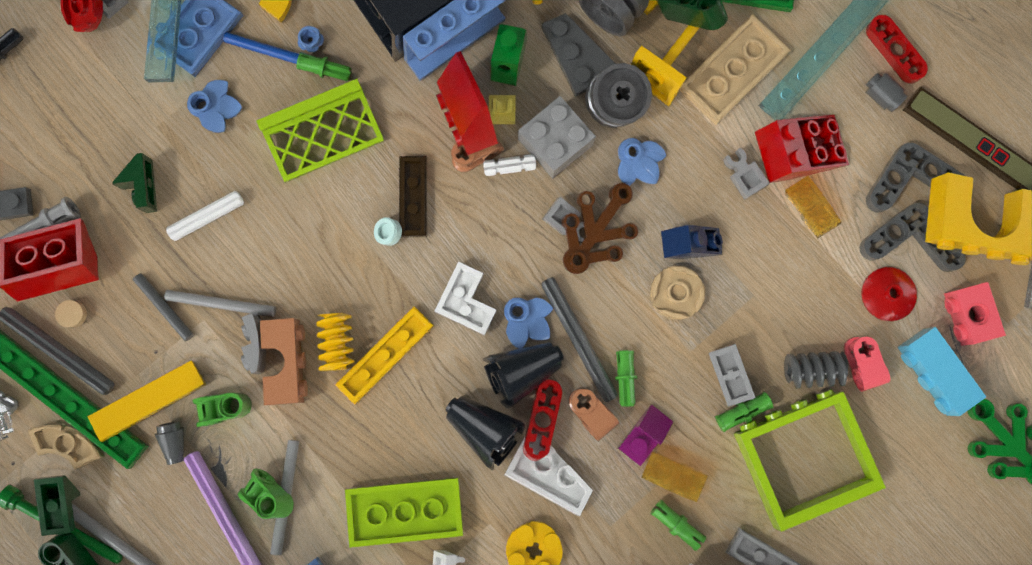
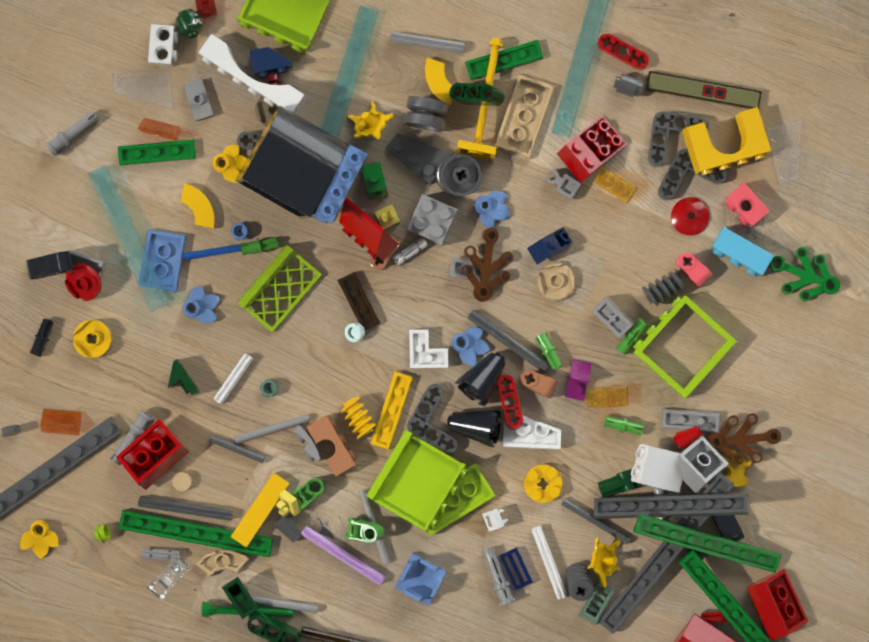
camera: 25 degrees left, 5 degrees up
(71, 88) = (81, 338): none -> yellow plate
(183, 411) = (288, 504): none -> light yellow tile
(236, 249) = (264, 388): none -> sand green plate
(367, 466) = (417, 482): none -> lime panel
(419, 387) = (423, 419): none -> dark grey beam

